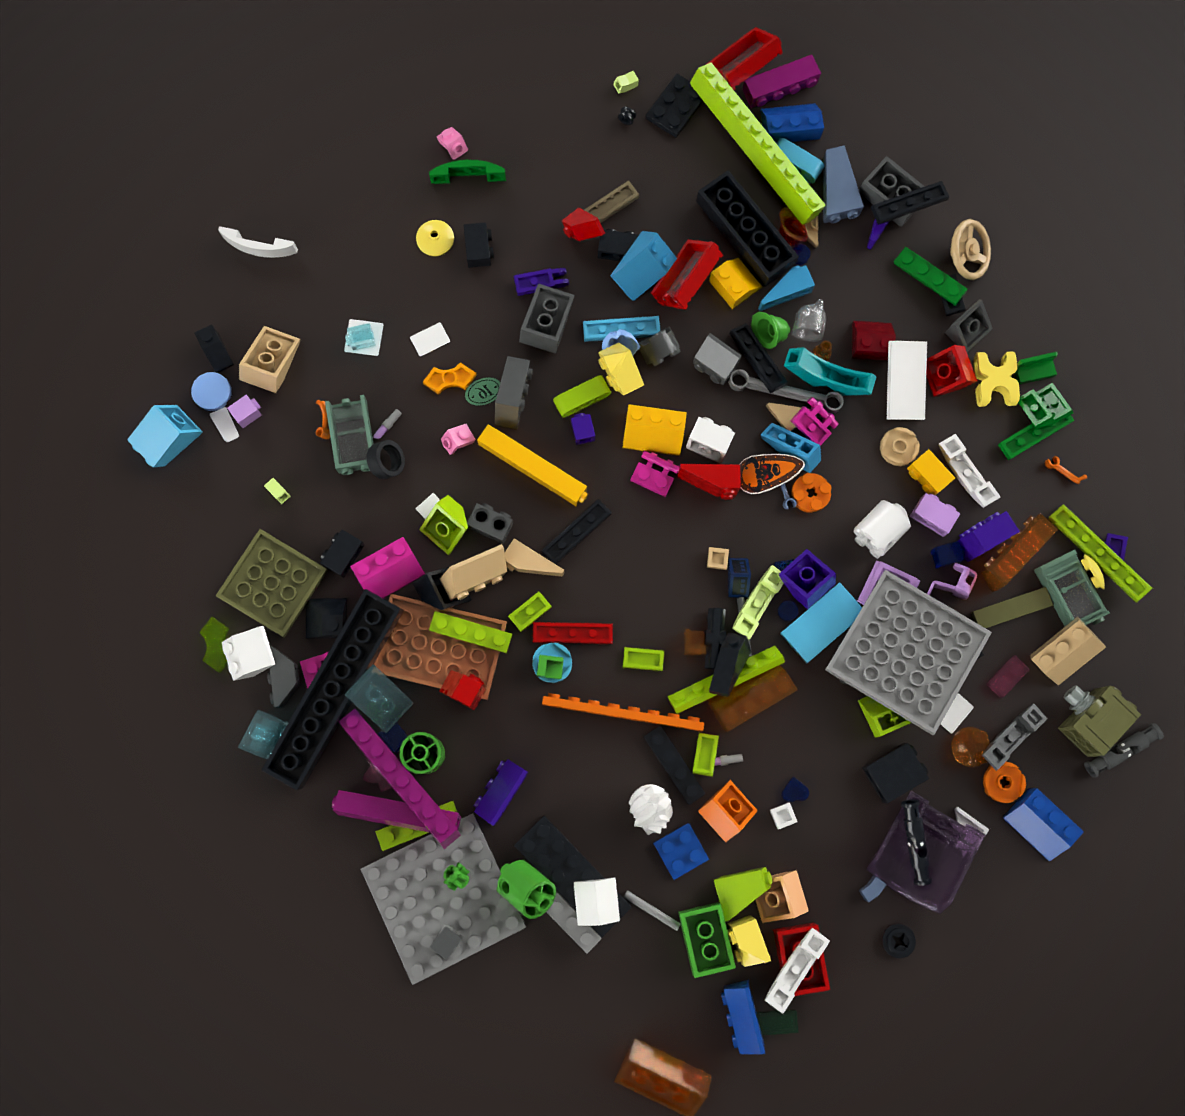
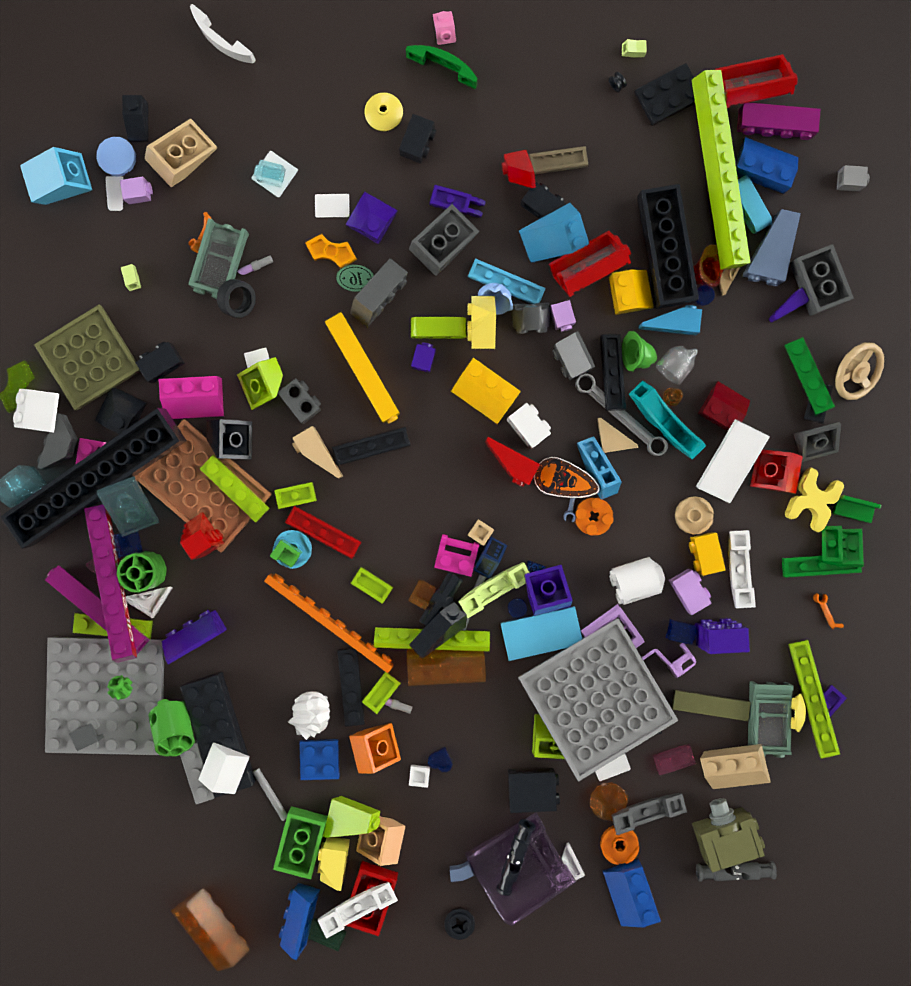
camera: 35 degrees right, 10 degrees up
(442, 782) = (149, 601): none -> white tile
(457, 438) = (310, 310): bright pink bracket -> none
(471, 332) = (371, 217): none -> dark purple slope
(475, 573) = (261, 441): tan slope -> none
(652, 479) = (462, 433): dark pink plate -> none
(687, 331) = (562, 316): none -> lavender brick
(710, 597) = (454, 561): none -> dark pink plate
(809, 424) = (625, 458): dark pink plate -> none
(870, 97) = (852, 178): none -> light grey brick
(910, 202) = (828, 300): black tile -> none
(1017, 552) = (744, 664): clear orange slope -> none

